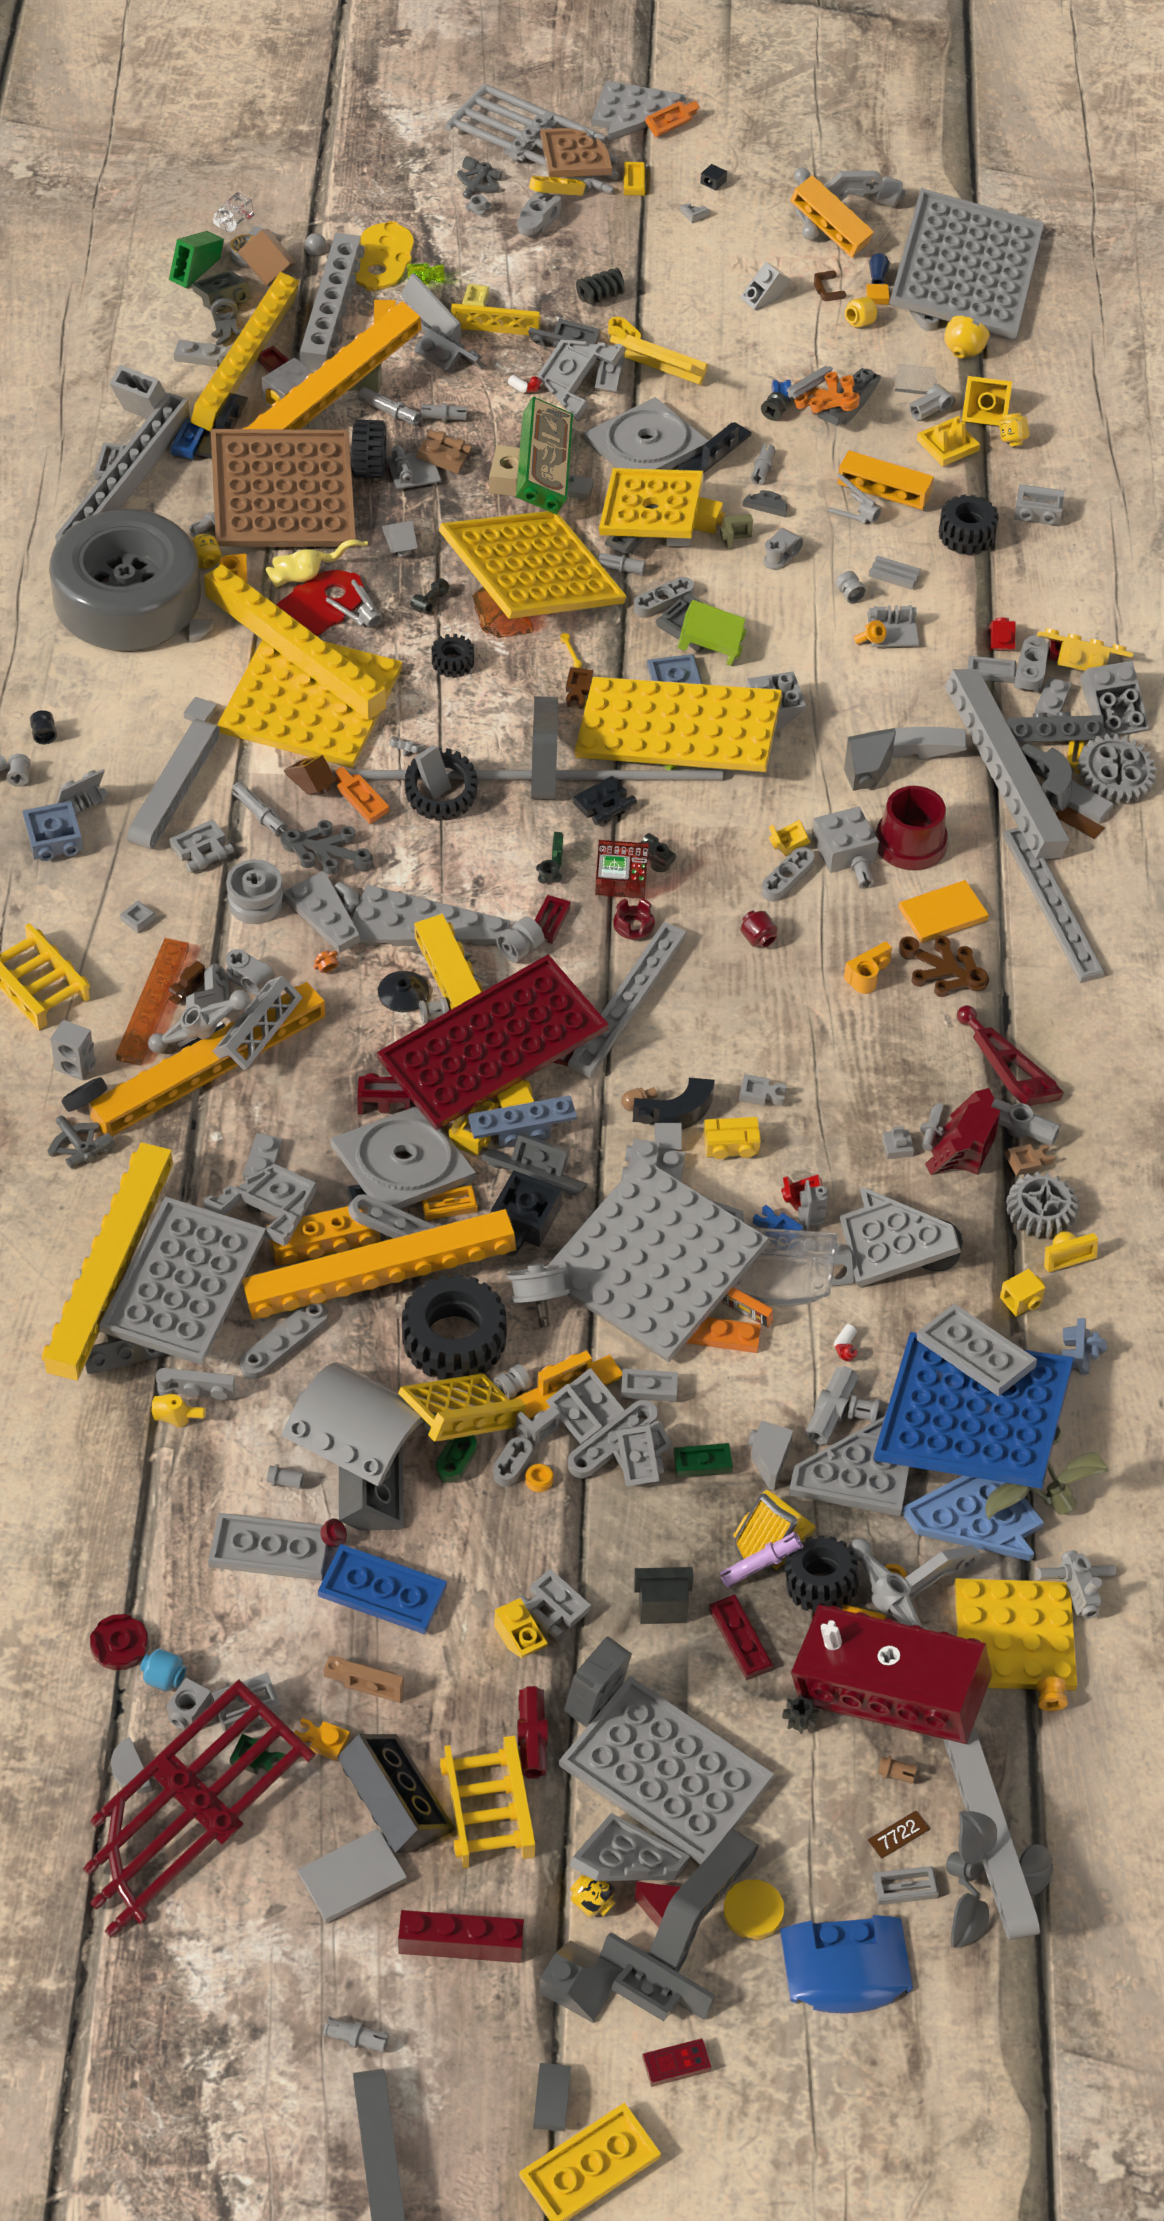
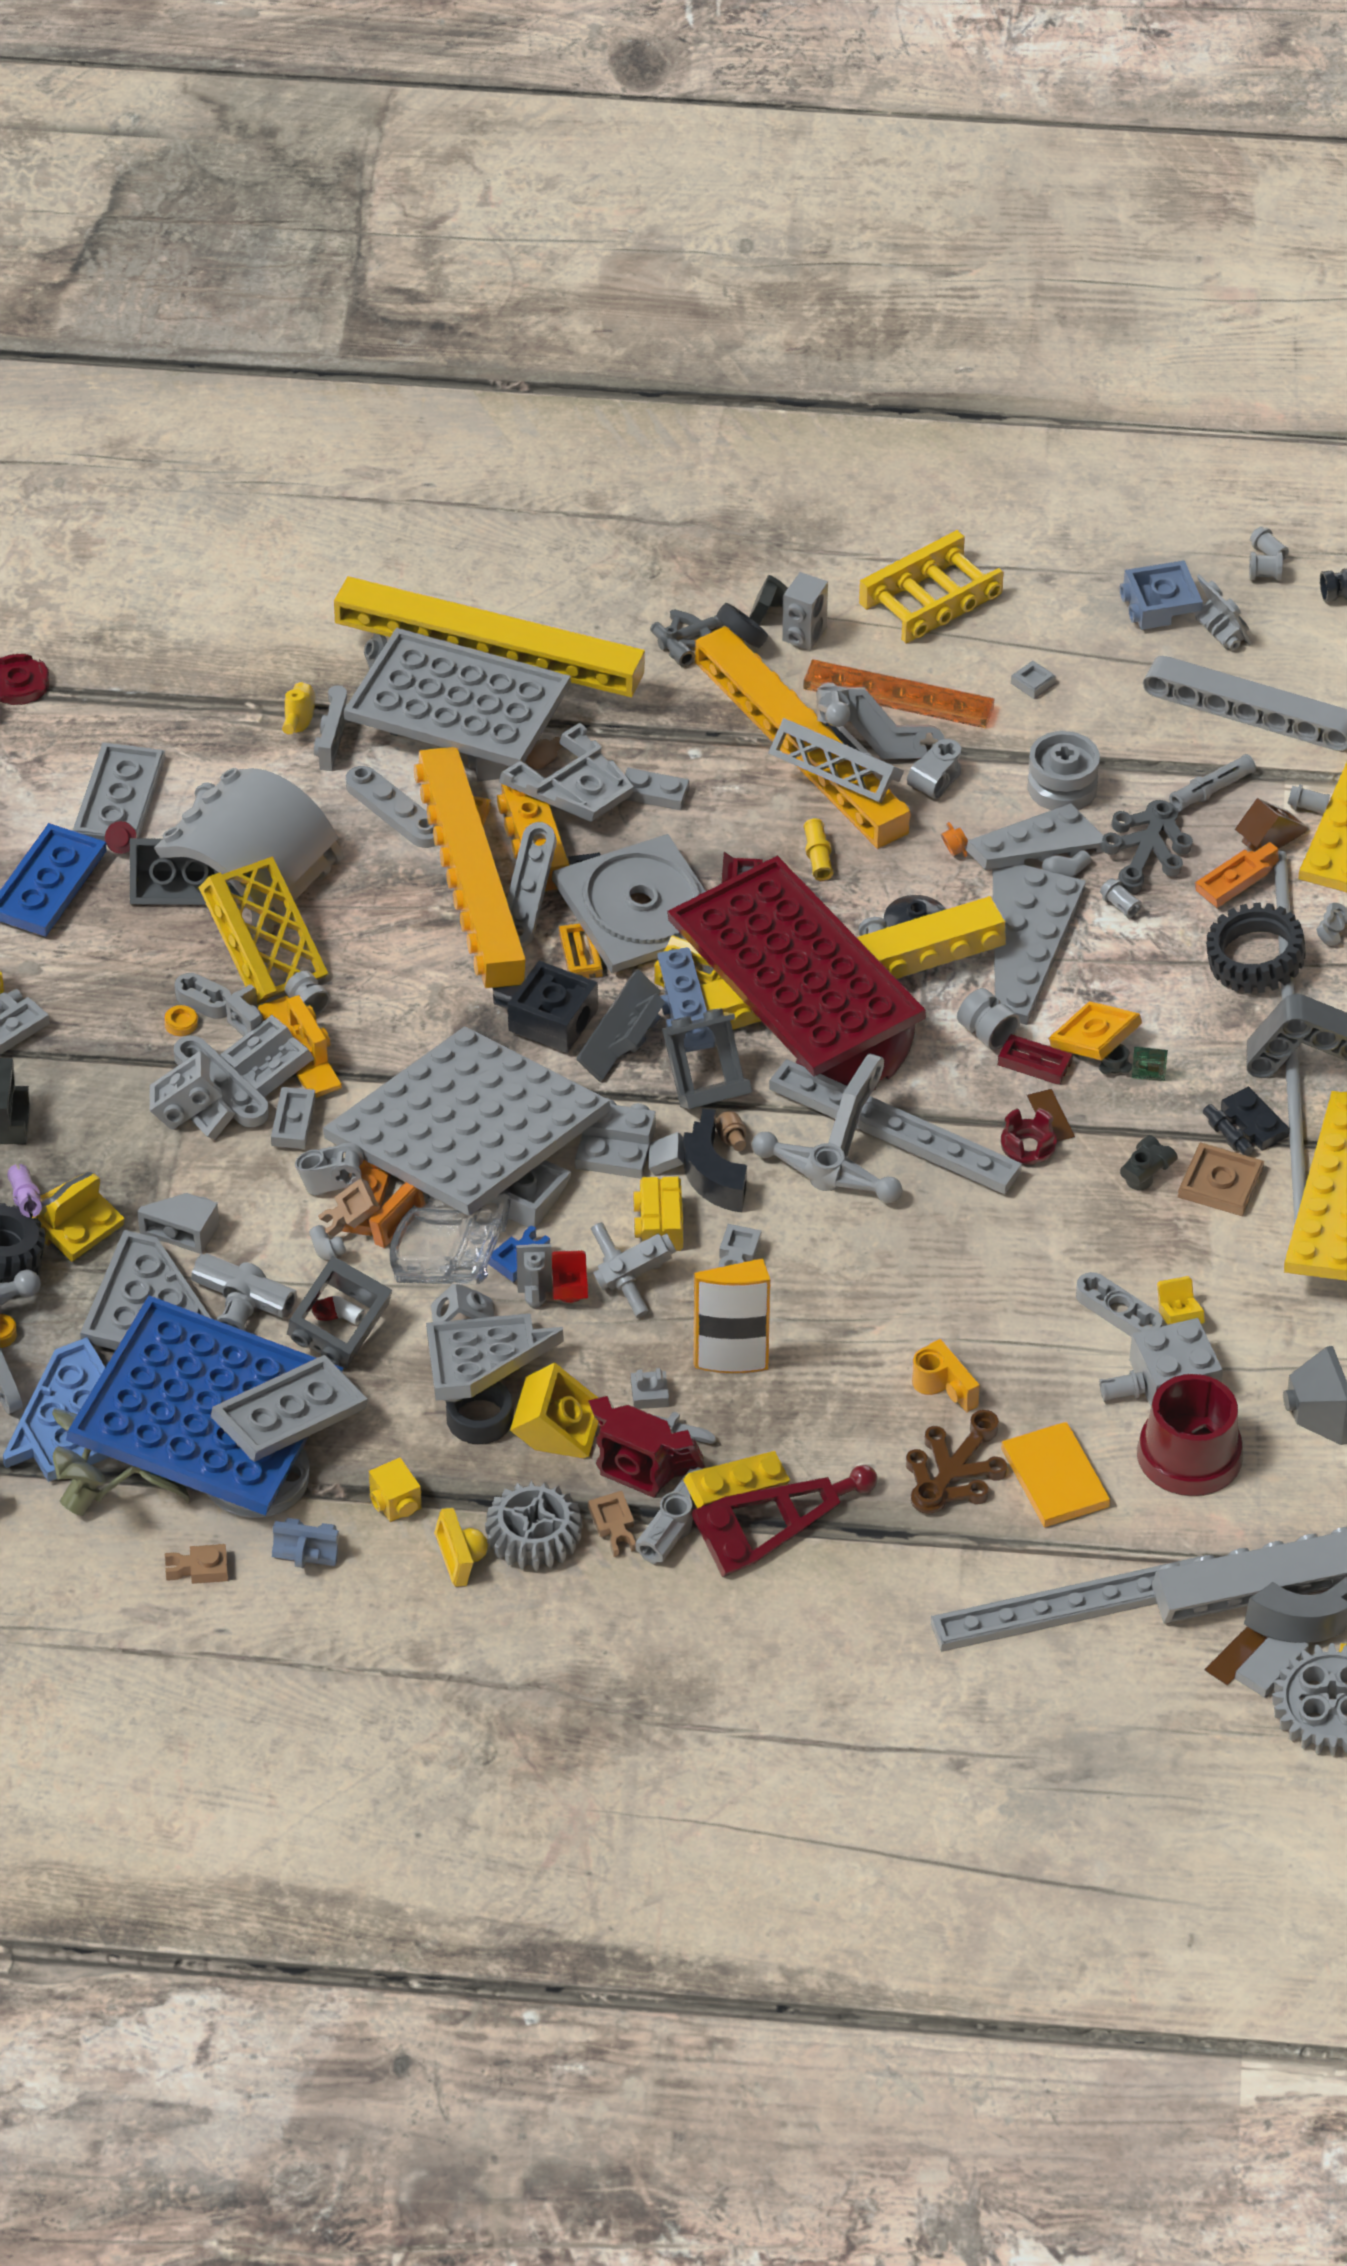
camera: 95 degrees right, 5 degrees down
(46, 1085) = (769, 595): none -> pearl dark grey tile
(190, 981) = (918, 714): reddish brown plate -> none
(199, 839) = (1154, 725): light grey plate -> none
(275, 758) = (1308, 799): none -> light grey pin
(335, 1047) = (818, 849): none -> yellow pin
(379, 867) = (1116, 894): none -> light grey pin
(433, 772) = (1268, 932): light grey tile -> none
(451, 1298) = (382, 906): black tyre -> none
(456, 1459) = (207, 943): dark green plate -> none
(526, 879) = (1095, 1030): none -> light orange tile
(538, 1285) = (430, 1006): light grey wheel -> none
(597, 914) = (1047, 1101): none -> reddish brown sticker
(597, 1098) = (722, 1030): none -> dark grey panel
(621, 869) = (1101, 1120): clear red slope -> none
(659, 816) = (1221, 1179): none -> medium nougat tile
(670, 1035) = (828, 1162): none -> light grey piece
(702, 1460) = (181, 1161): dark green plate -> none
(711, 1343) = (328, 1170): none -> light grey piece
(754, 1327) = (353, 1207): none -> medium nougat plate
(759, 929) = (1010, 1261): dark red head -> none
(782, 1357) = (323, 1245): none -> light grey arm
(792, 1155) = (622, 1268): none -> light grey piece
(858, 1346) = (353, 1284): none -> dark grey window
(864, 1062) = (732, 1318): none -> slope
(937, 1196) = (555, 1413): none -> yellow slope
(984, 1077) = (735, 1478): none -> yellow plate
(1105, 1415) = (204, 1564): none -> medium nougat plate

